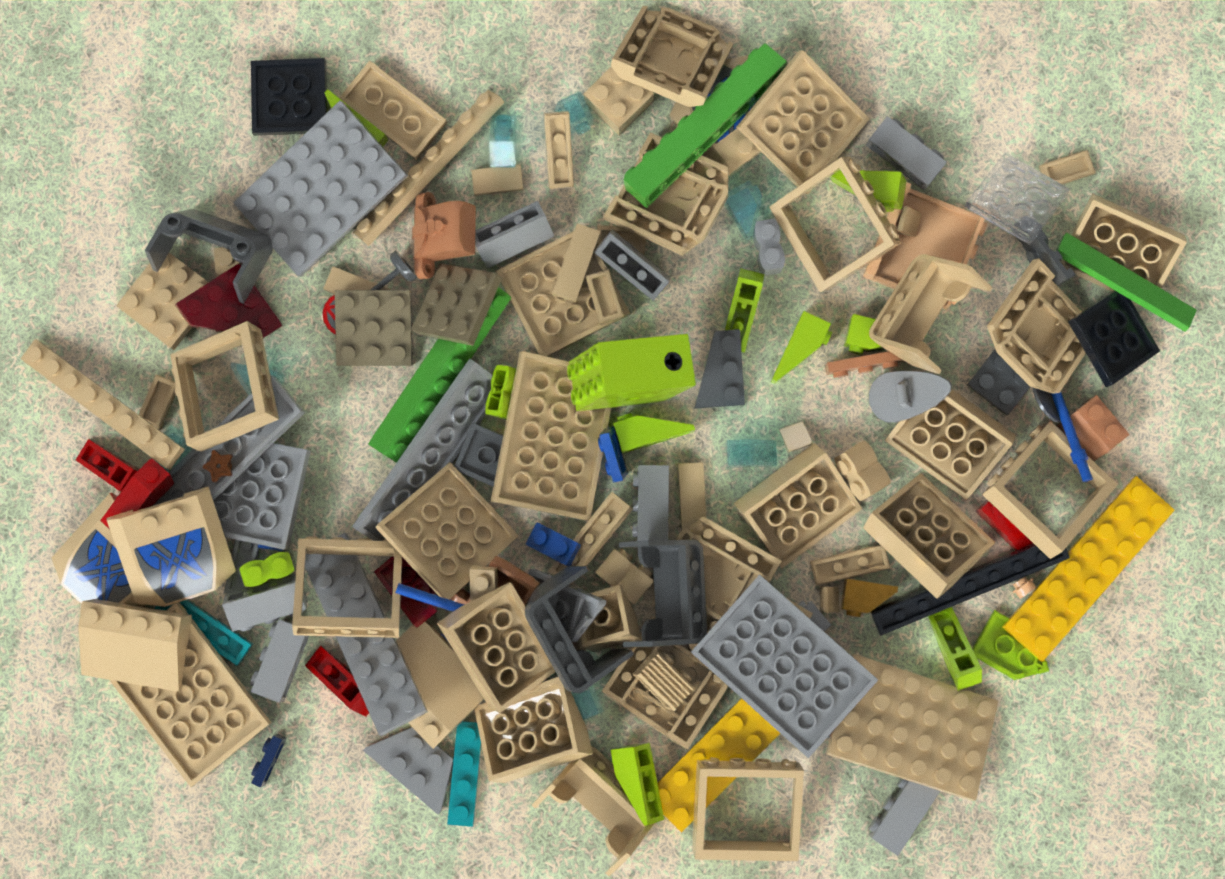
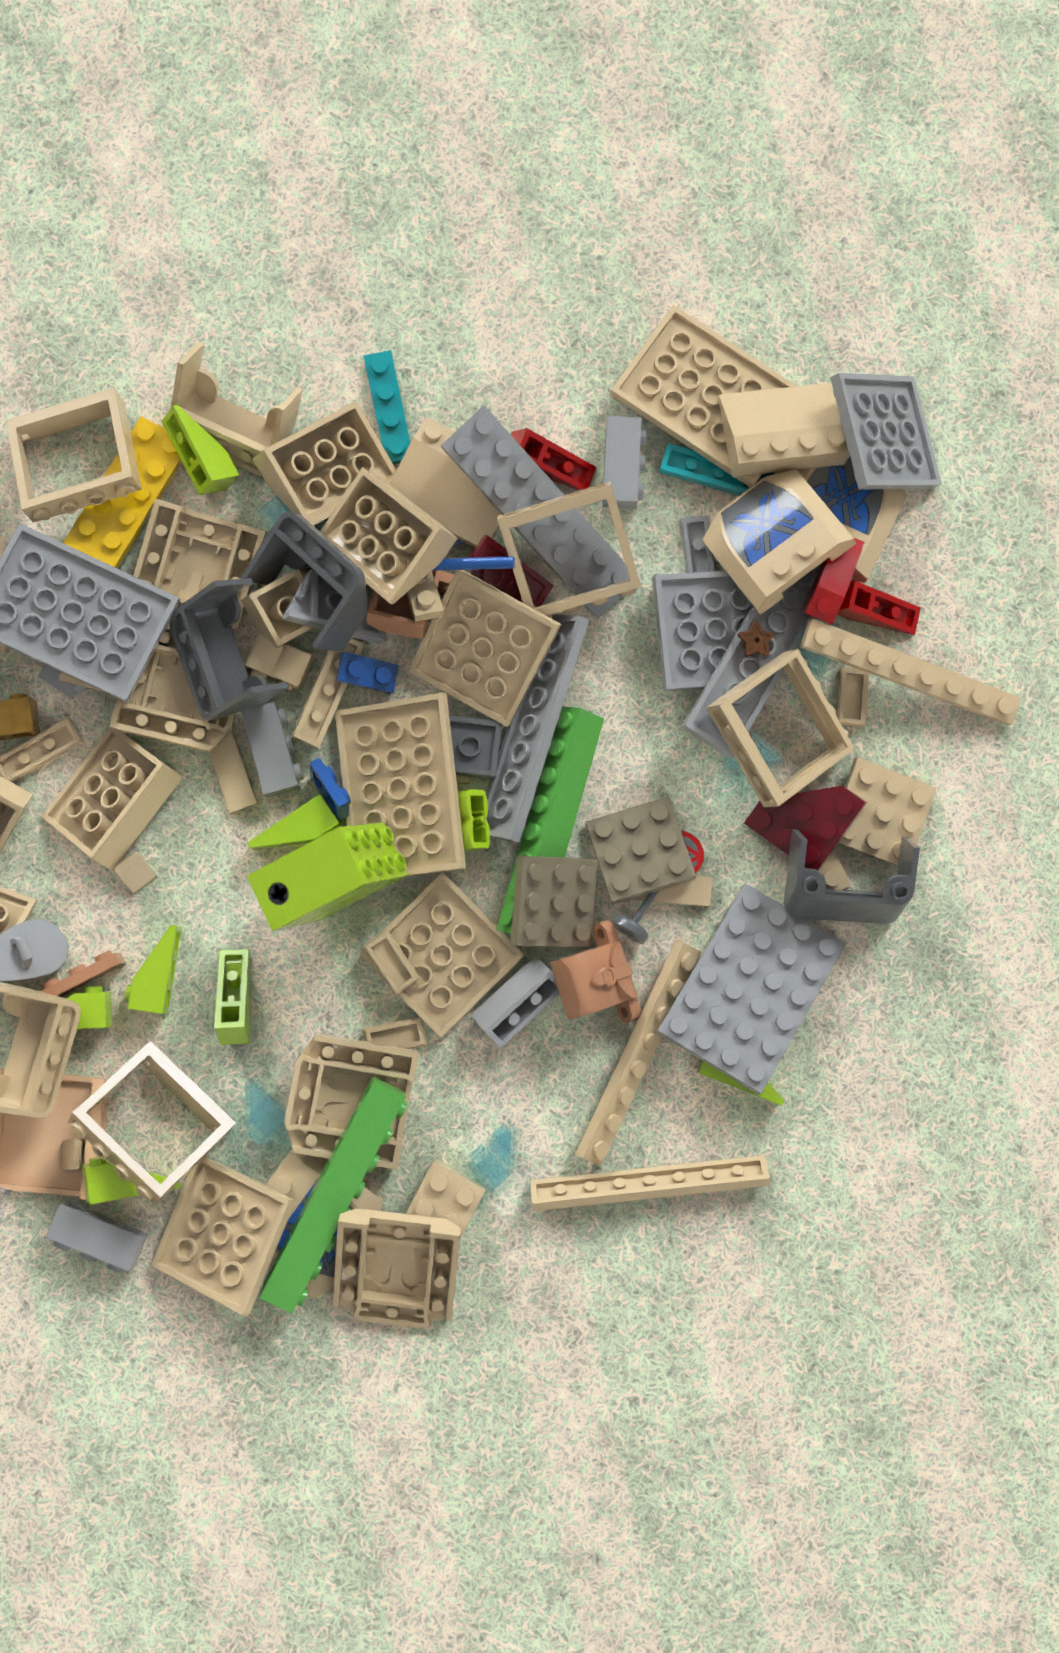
camera: 155 degrees right, 0 degrees up
(49, 612) = (885, 431): none -> light grey plate
(259, 571) = (675, 546): lime brick -> none
(261, 603) = (662, 515): light grey brick -> none
(264, 768) = (604, 345): dark blue plate -> none
(287, 95) = (826, 1087): black plate -> none
(393, 110) = (701, 1107): tan plate -> none
(415, 765) = (442, 396): light grey wing -> none
(453, 63) = (649, 1183): none -> tan plate
(497, 180) = (556, 1063): tan tile -> none
(503, 141) = (562, 1108): clear light blue slope -> none
(558, 149) = (495, 1116): tan tile -> none
(576, 263) = (435, 991): tan tile -> none
(632, 265) = (370, 1007): light grey brick -> none
(664, 680) = (199, 560): tan brick -> none
(723, 373) = (234, 918): dark grey wing -> none
(750, 453) = (179, 836): clear light blue slope -> none
(766, 240) = (220, 1069): light grey brick -> none
(829, 599) = (50, 705): tan slope -> none
(862, 470) = (49, 855): tan brick -> none

